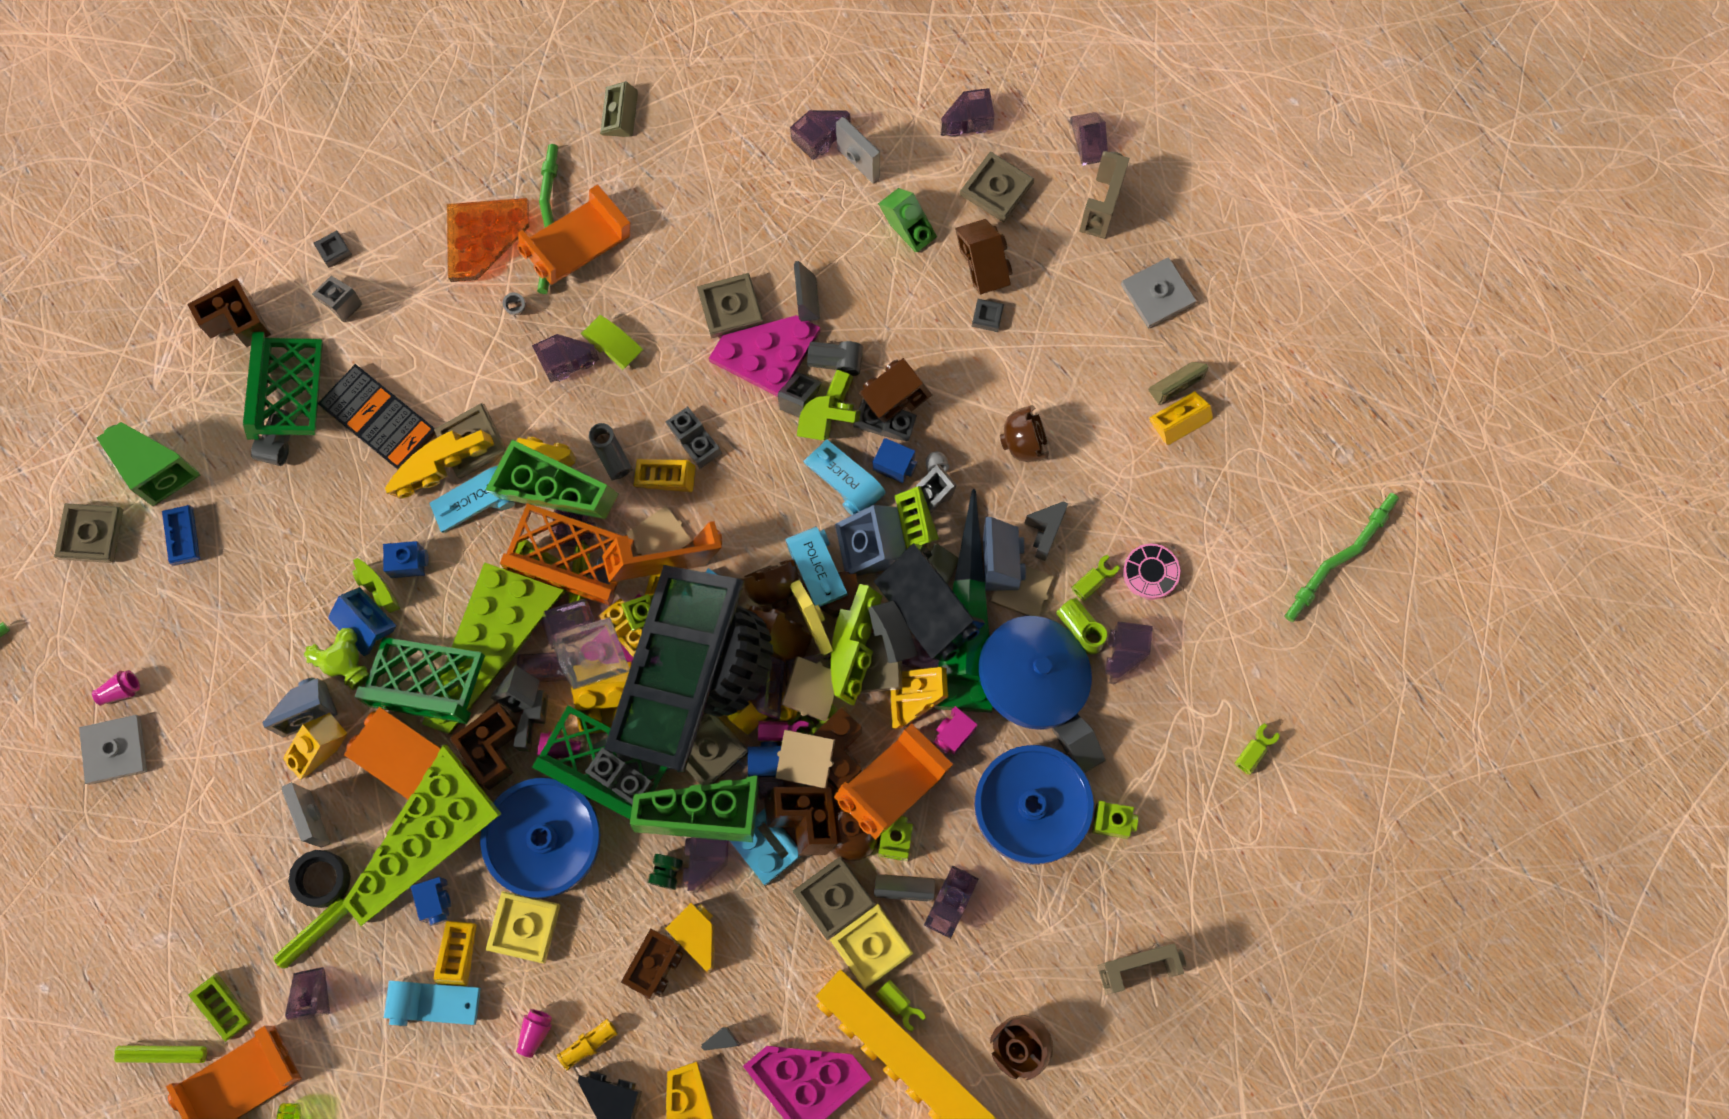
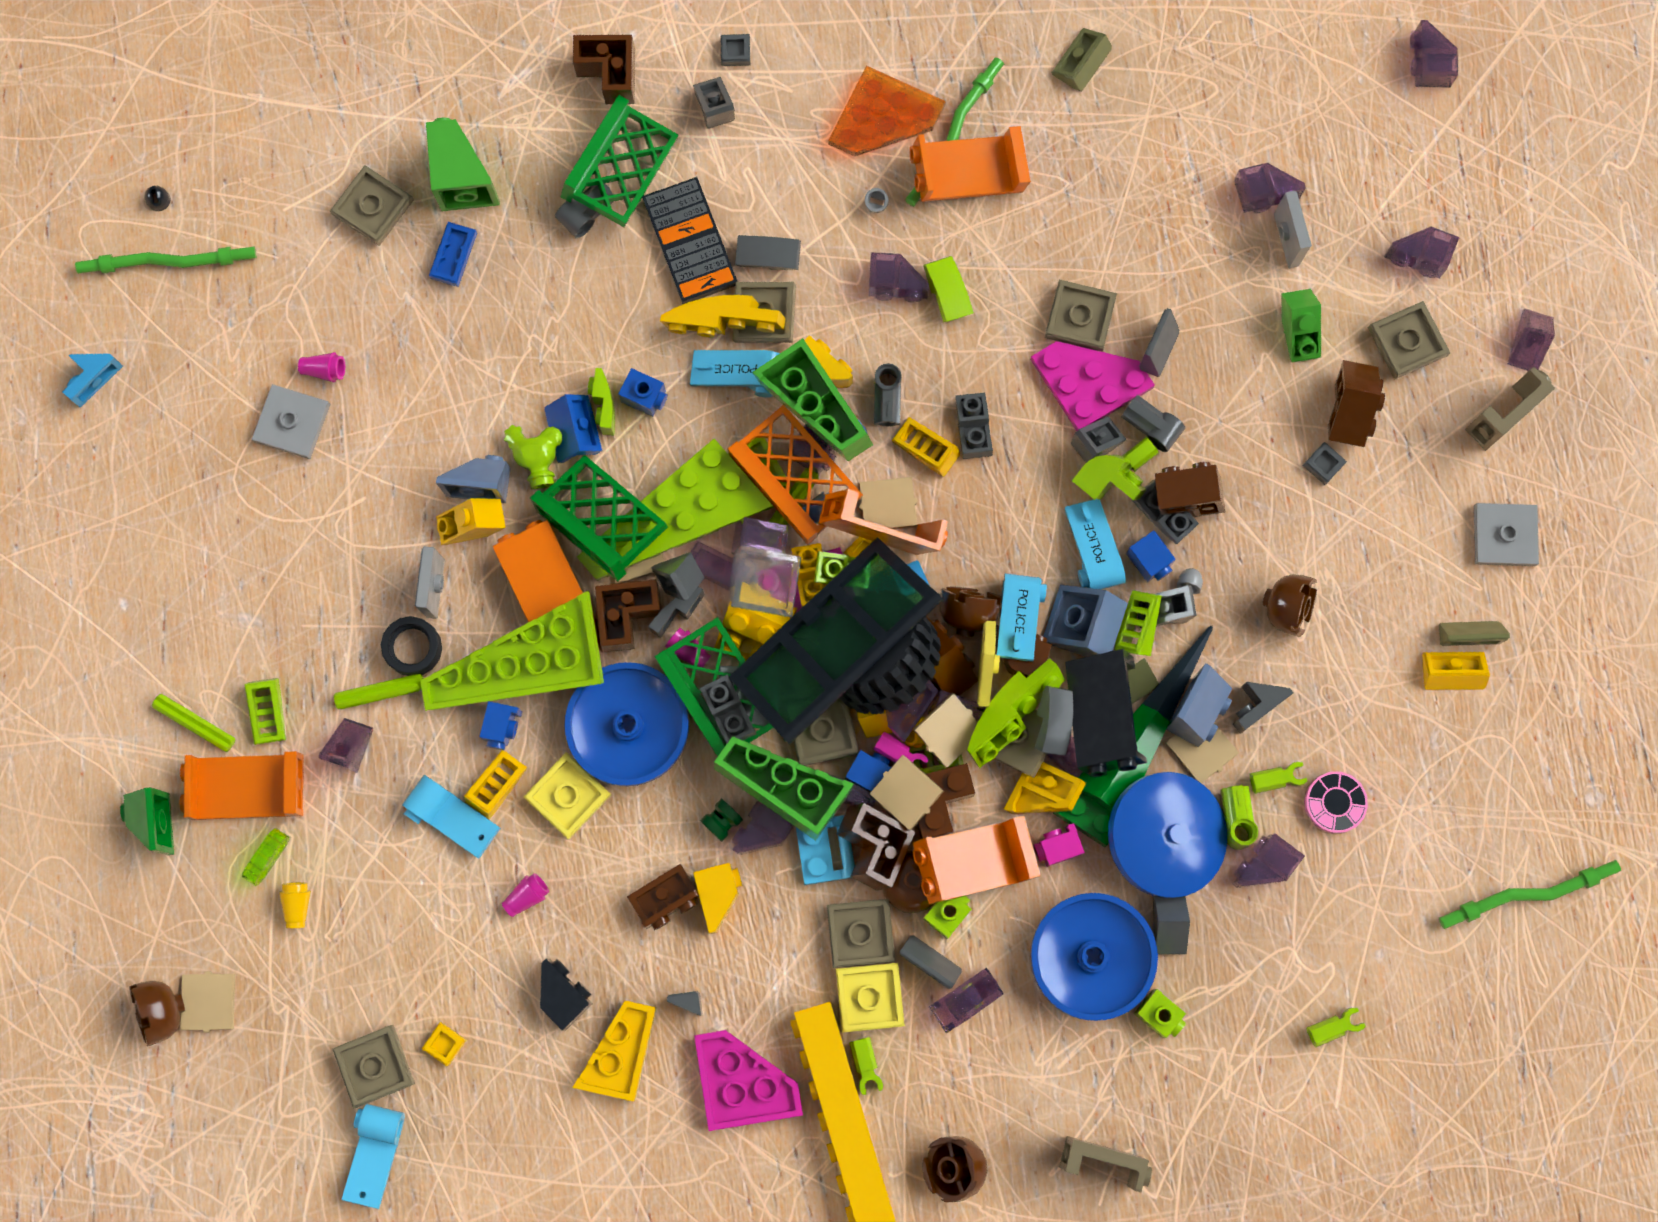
camera: 30 degrees right, 5 degrees up
(447, 391) = (768, 252): none -> dark grey slope
(587, 1044) = (567, 934): yellow pin -> none

